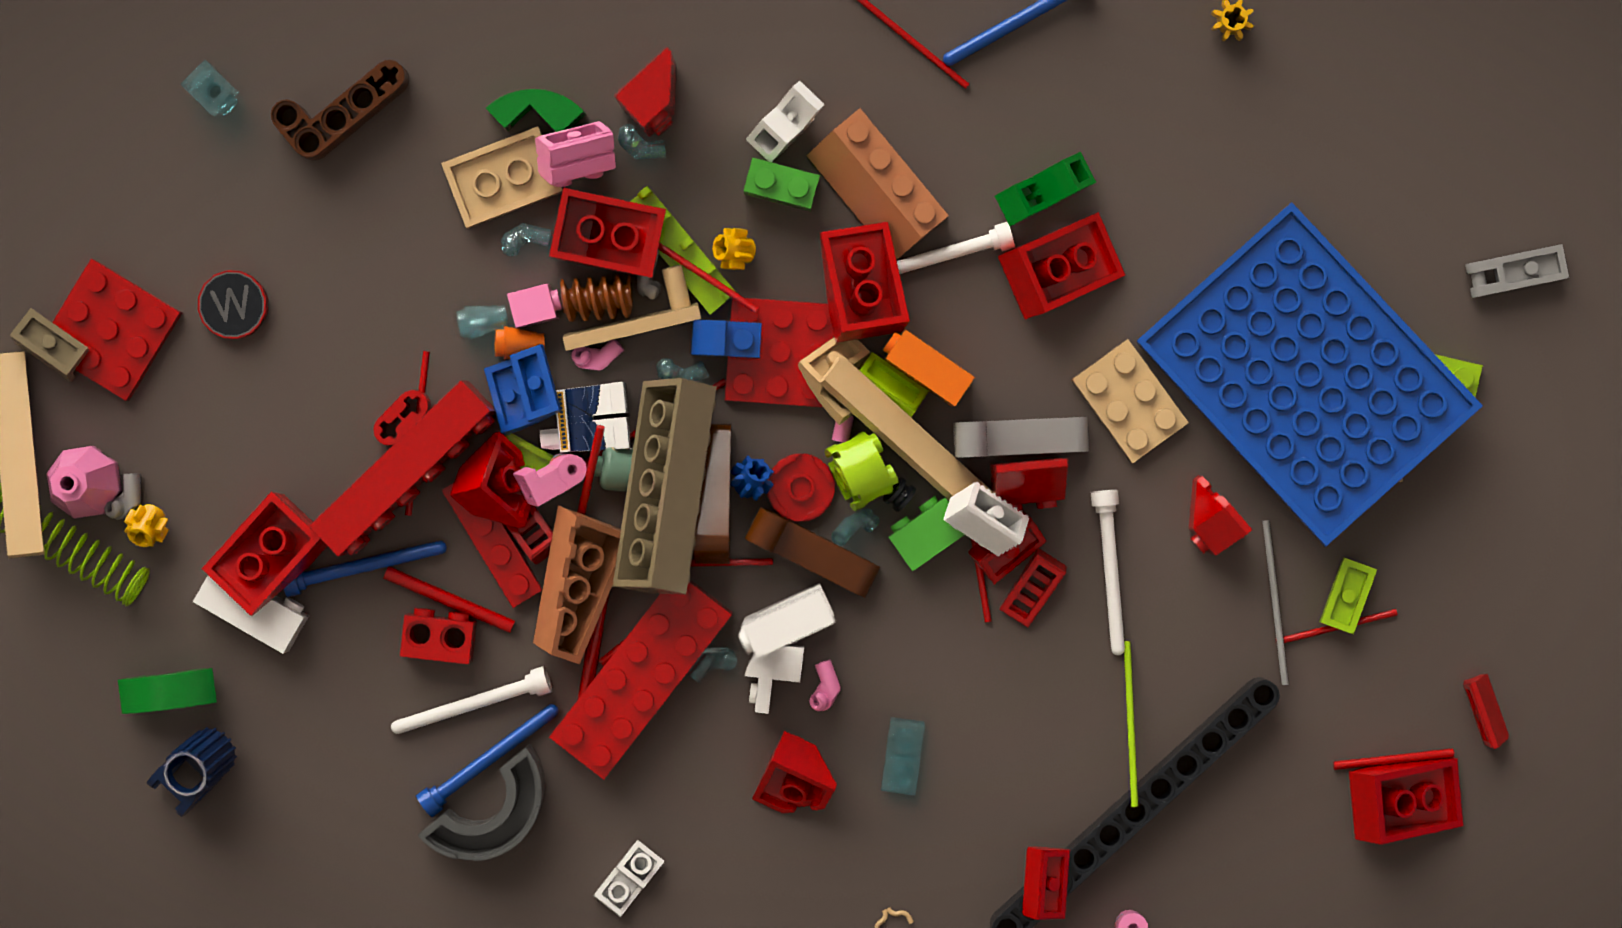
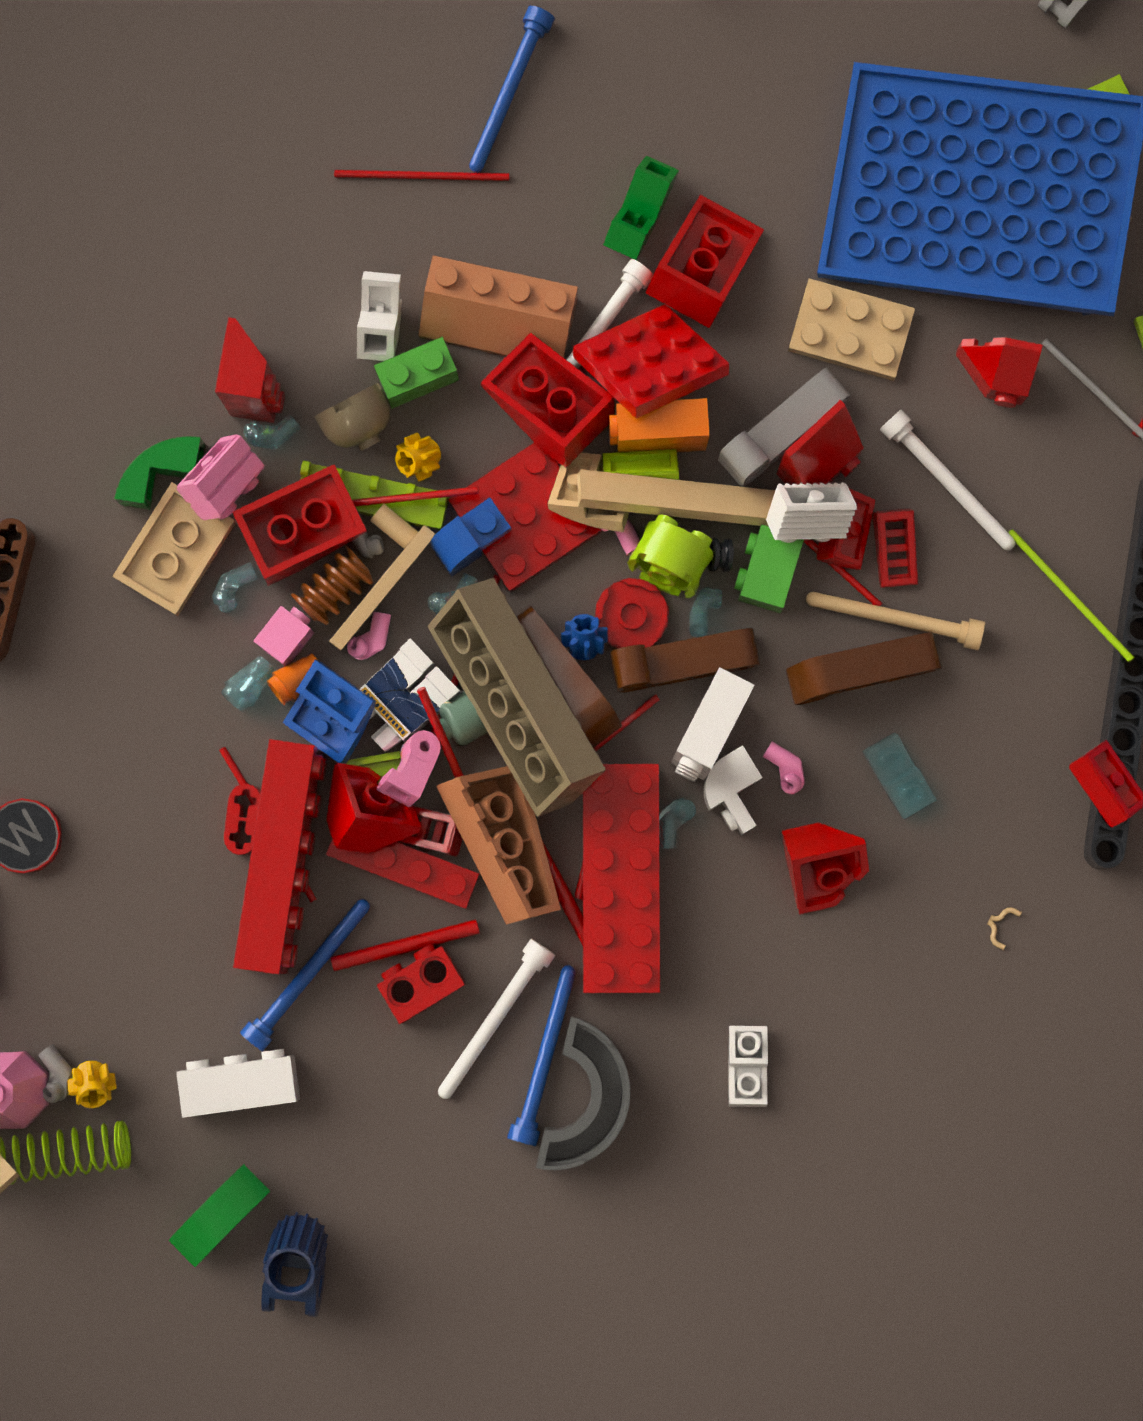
camera: 35 degrees left, 5 degrees down
(265, 553) = (214, 1025): red slope -> none
(709, 185) = (356, 419): none -> dark tan cylinder
(937, 659) = (862, 667): none -> reddish brown beam
(958, 314) = (650, 360): none -> red plate
(1034, 691) = (968, 633): none -> tan piece

